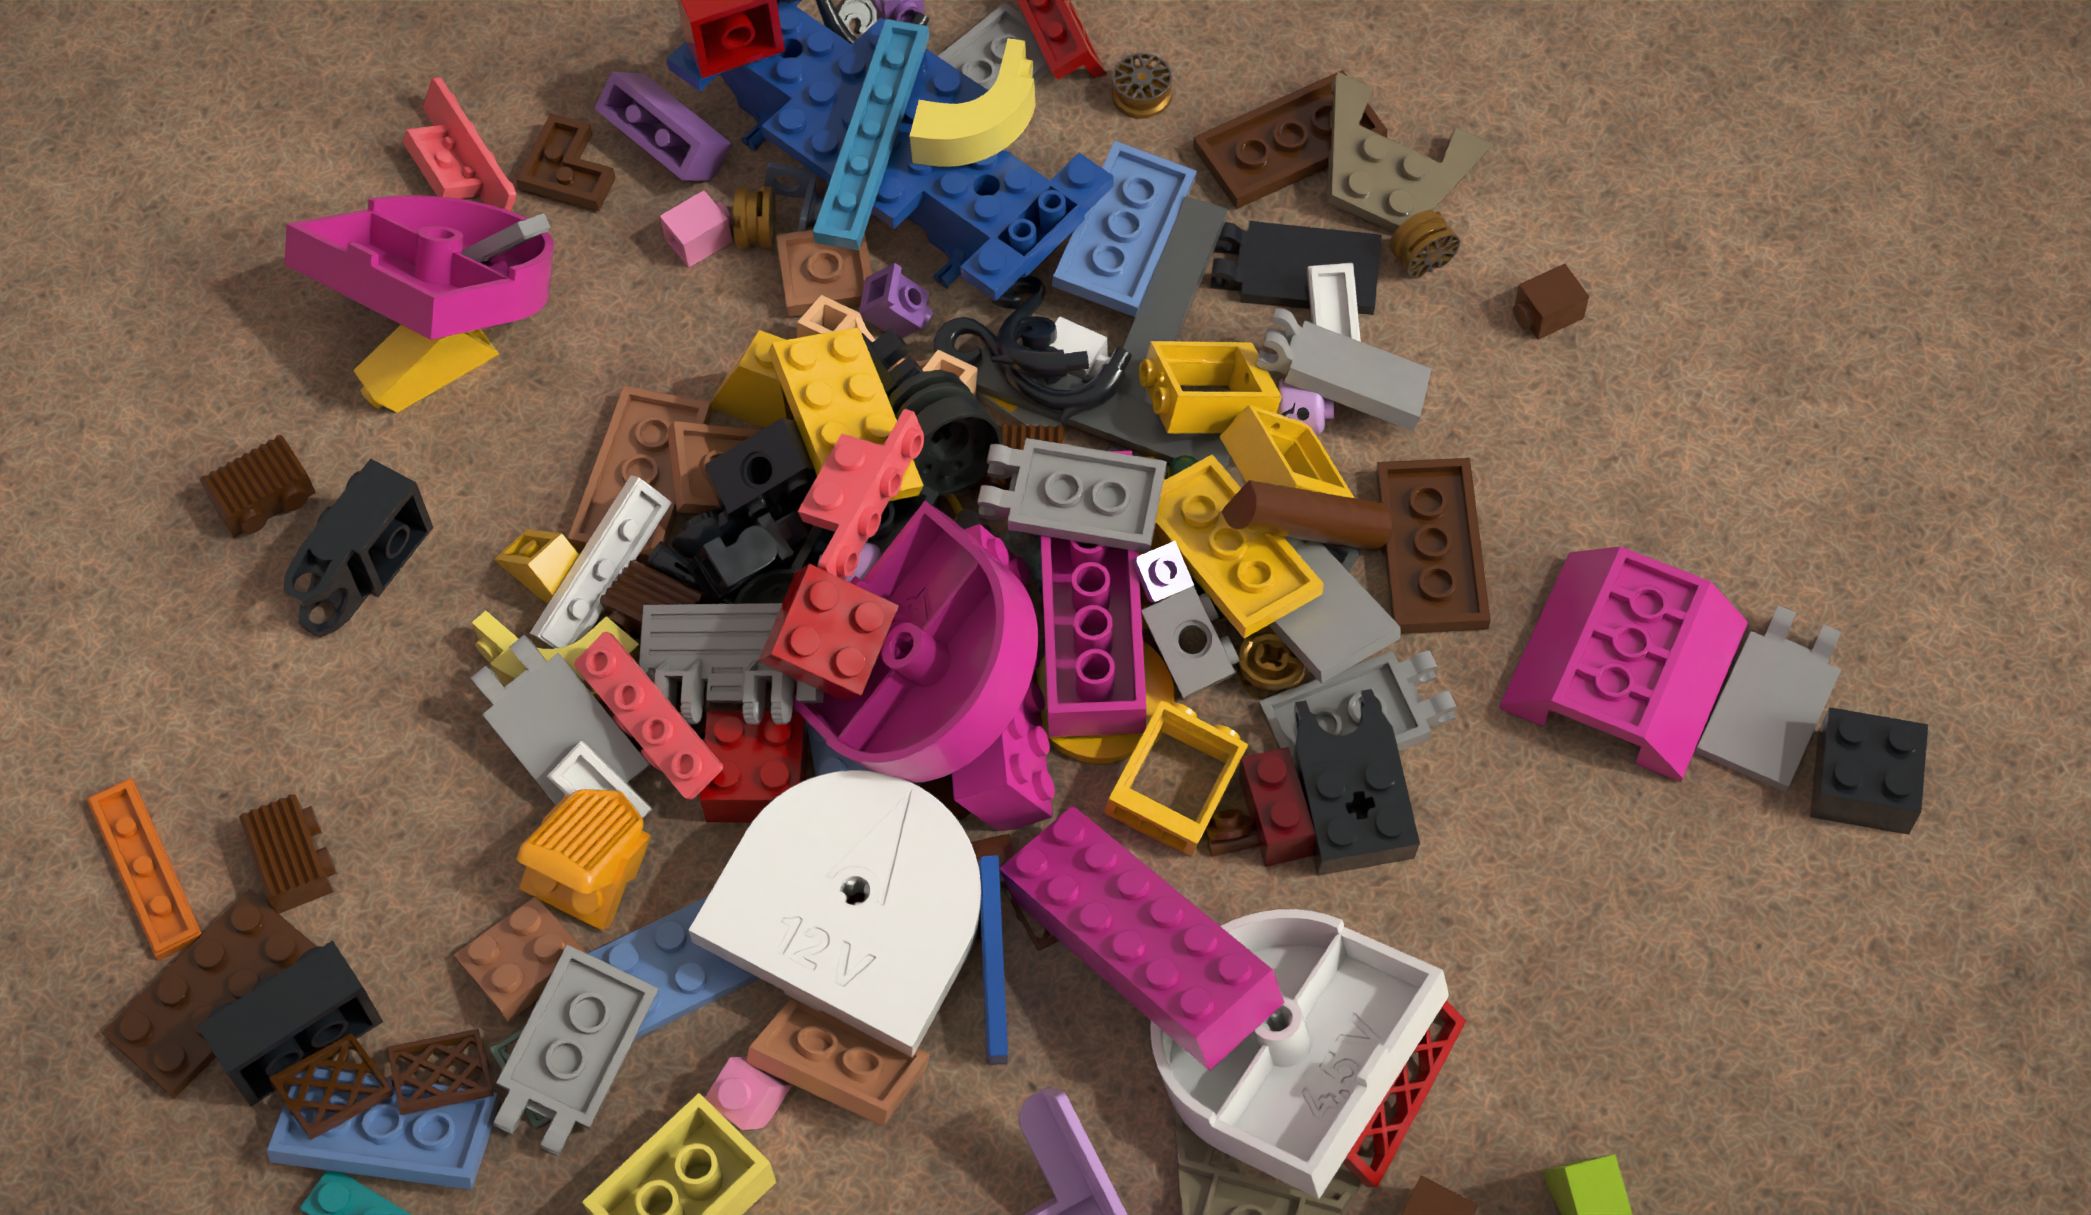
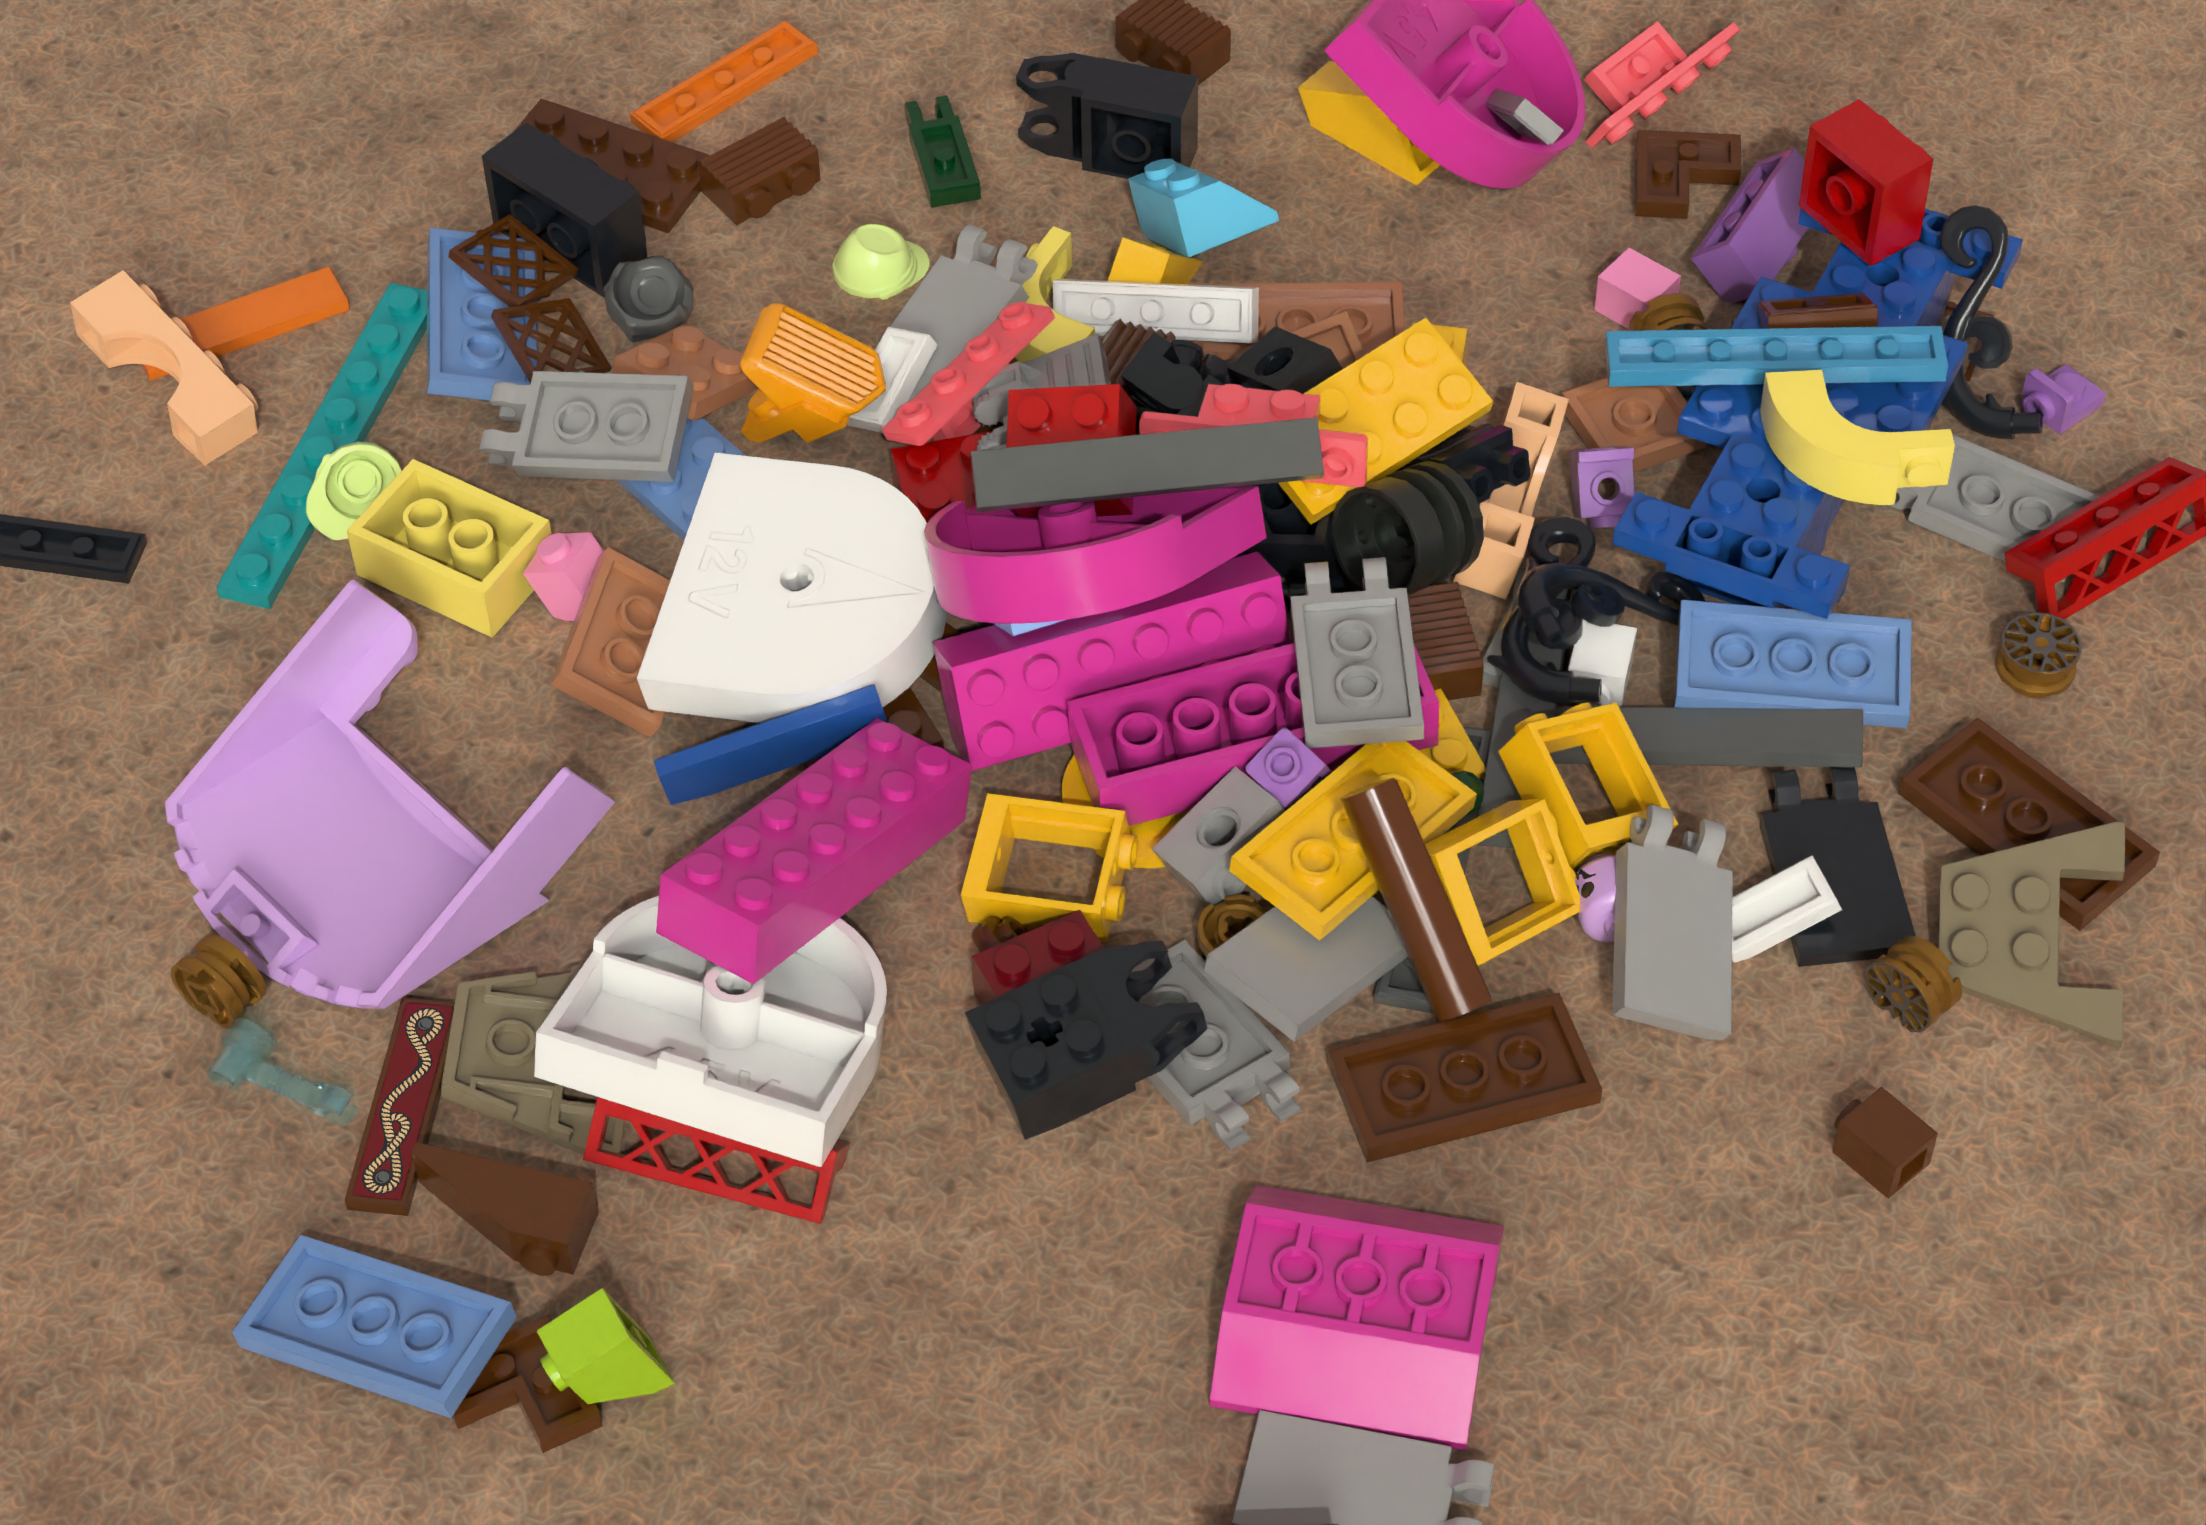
camera: 75 degrees right, 10 degrees down
(319, 700) = (942, 155): none -> dark green hinge
(420, 974) = (648, 297): none -> dark grey hair
(434, 782) = (878, 262): none -> yellowish green hat
(491, 513) = (1192, 209): none -> medium azure slope
(834, 96) = (1818, 312): none -> reddish brown slope
(889, 573) = (1146, 464): none -> dark grey tile

